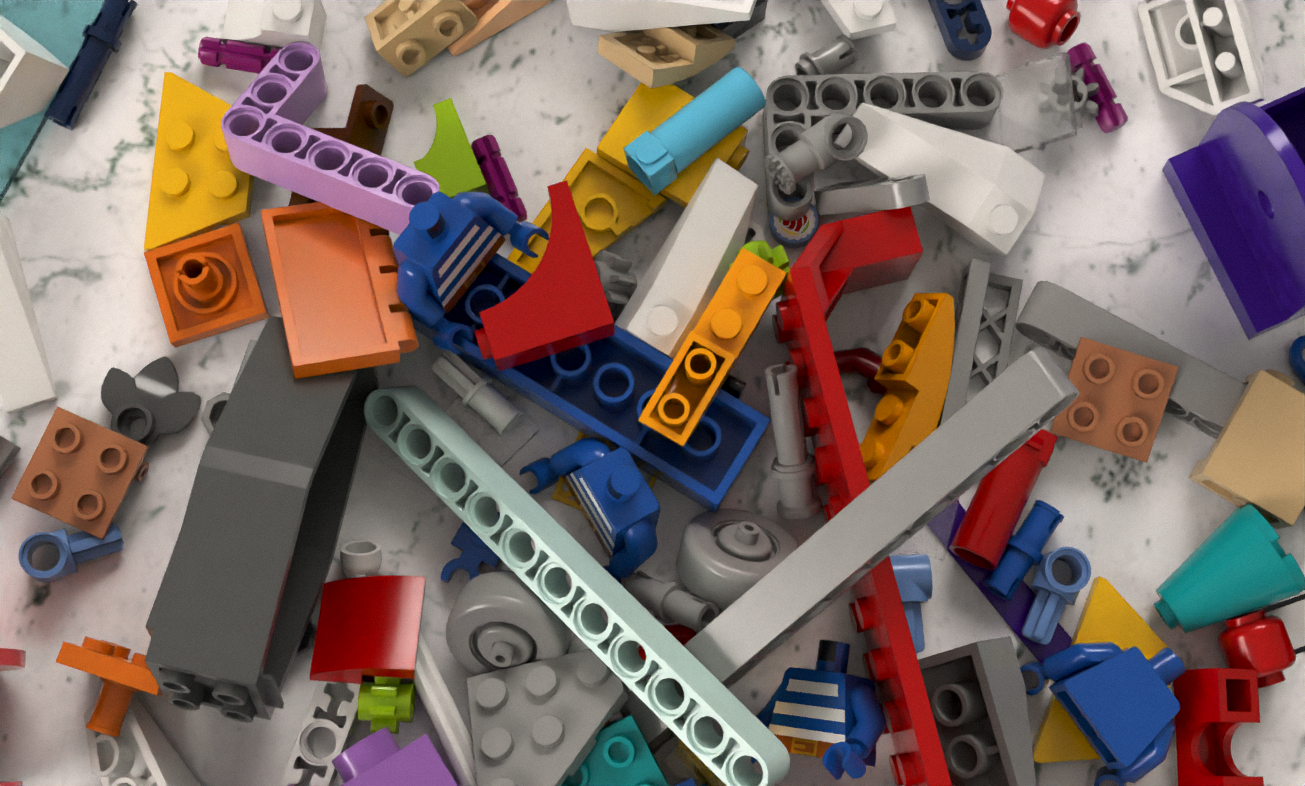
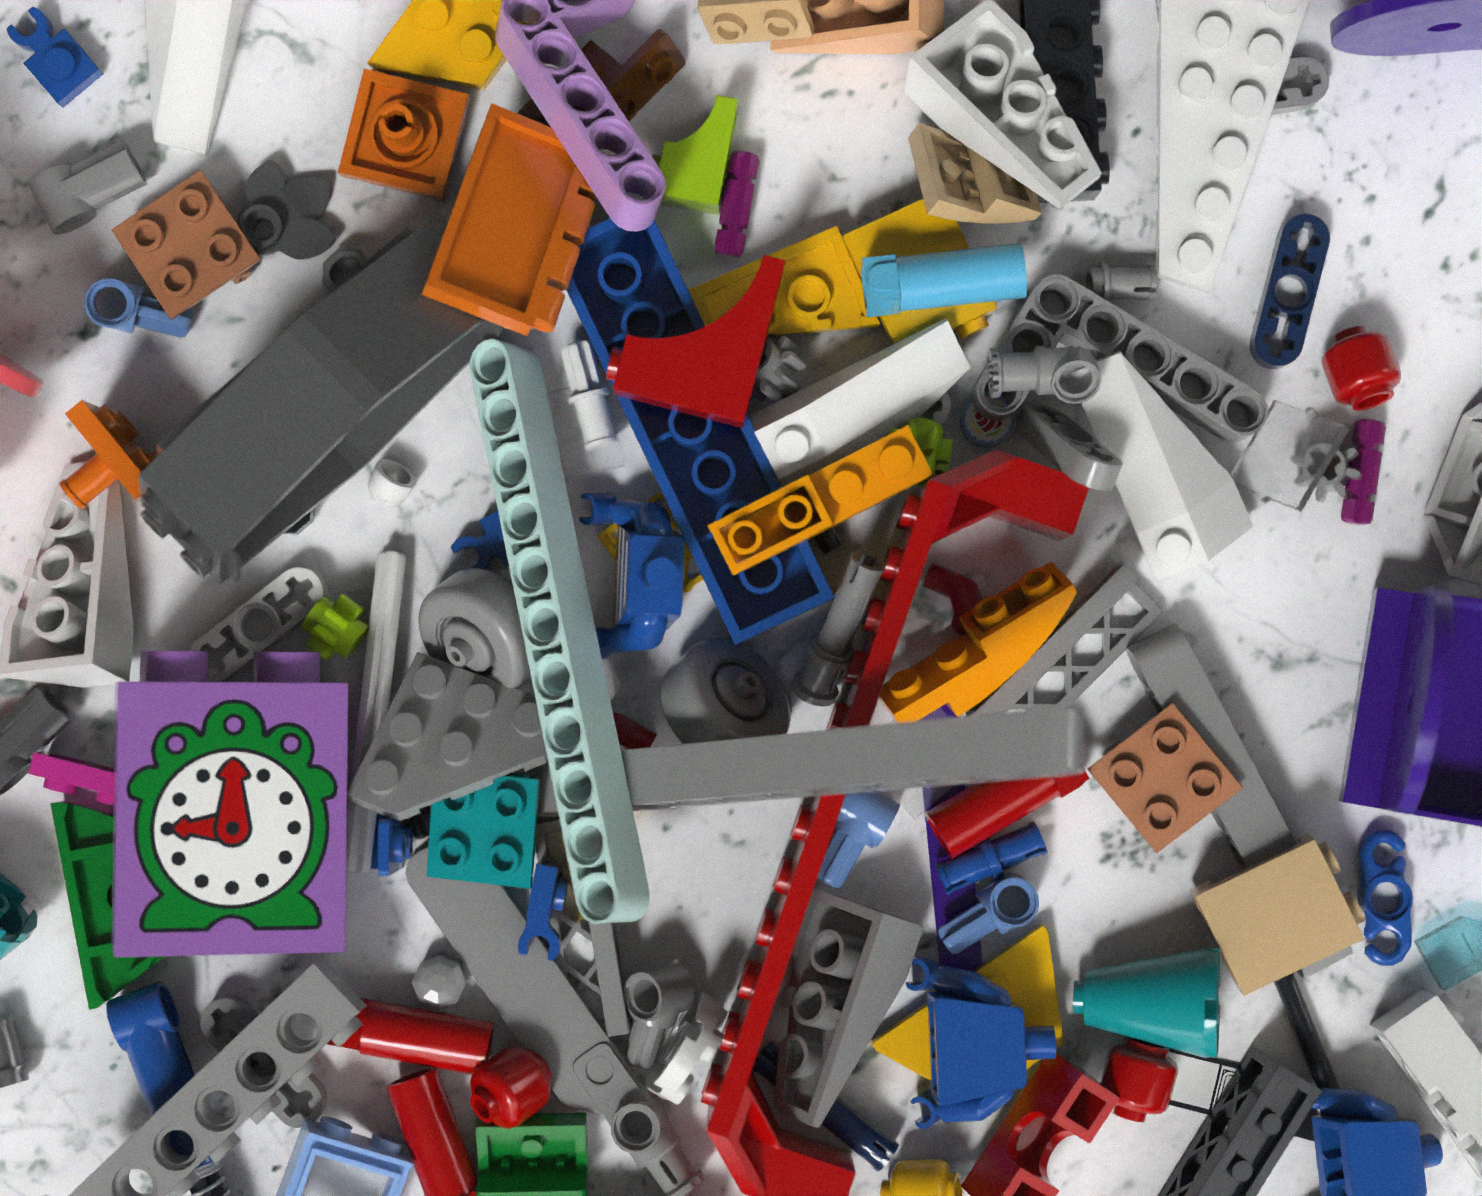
camera: 35 degrees right, 10 degrees up
(368, 628) = (358, 552): red slope -> none
(447, 250) = (636, 256): blue torso -> none
(671, 601) = (639, 701): light grey pin -> none
(827, 713) = (710, 889): torso -> none

